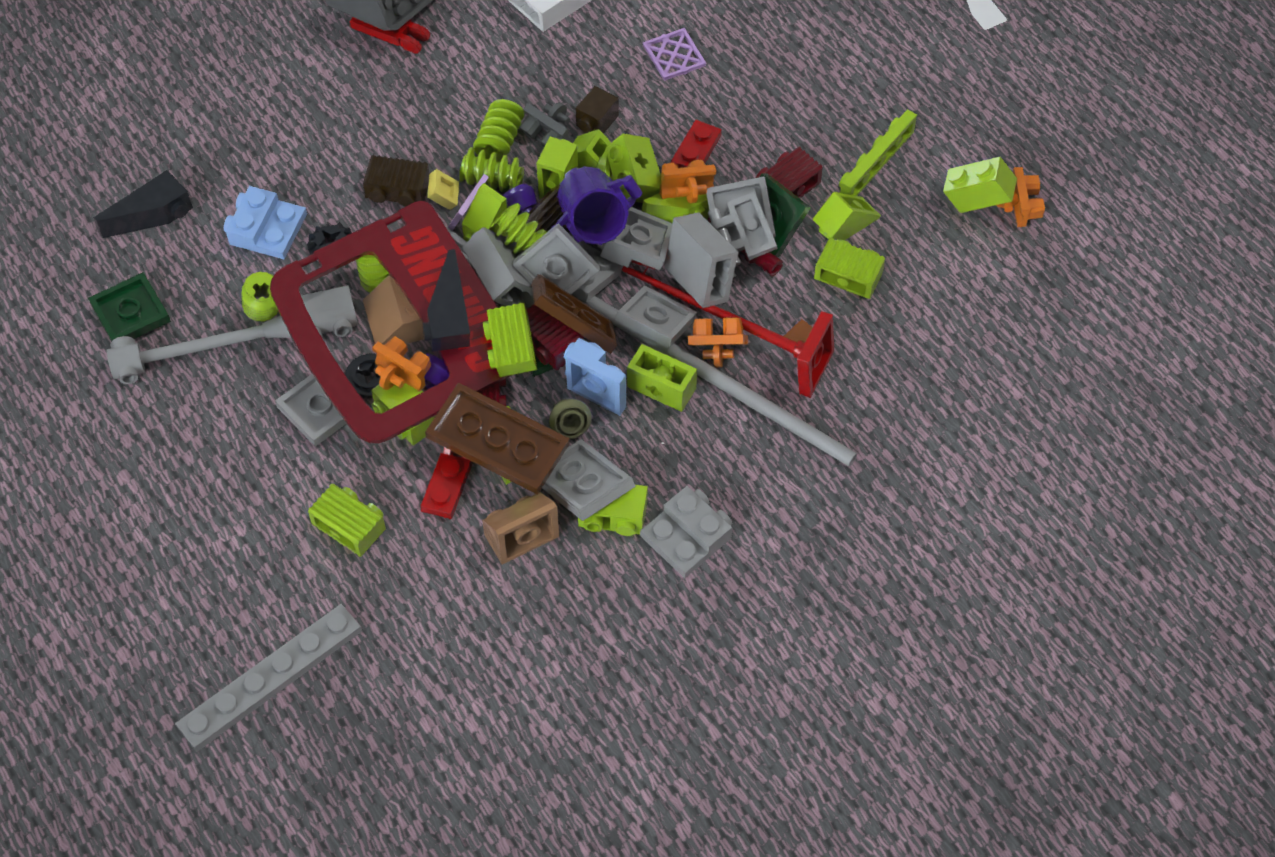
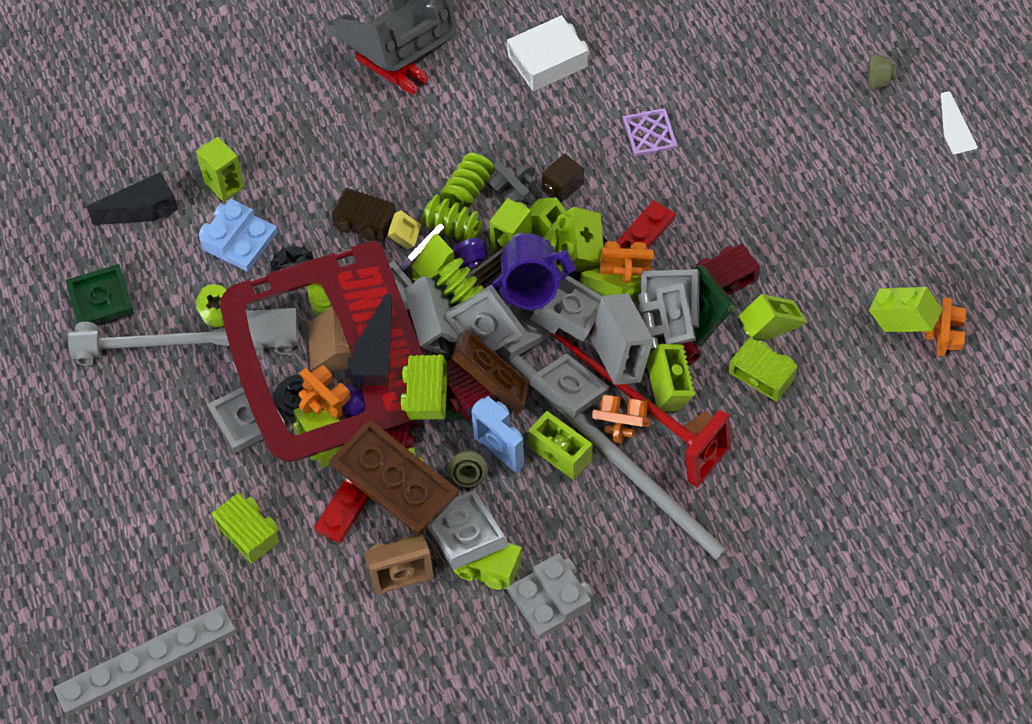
camera: 15 degrees right, 0 degrees up
(232, 156) = (220, 169): none -> lime brick
(758, 290) = (670, 377): none -> lime brick
(881, 152) = (822, 259): lime plate -> none

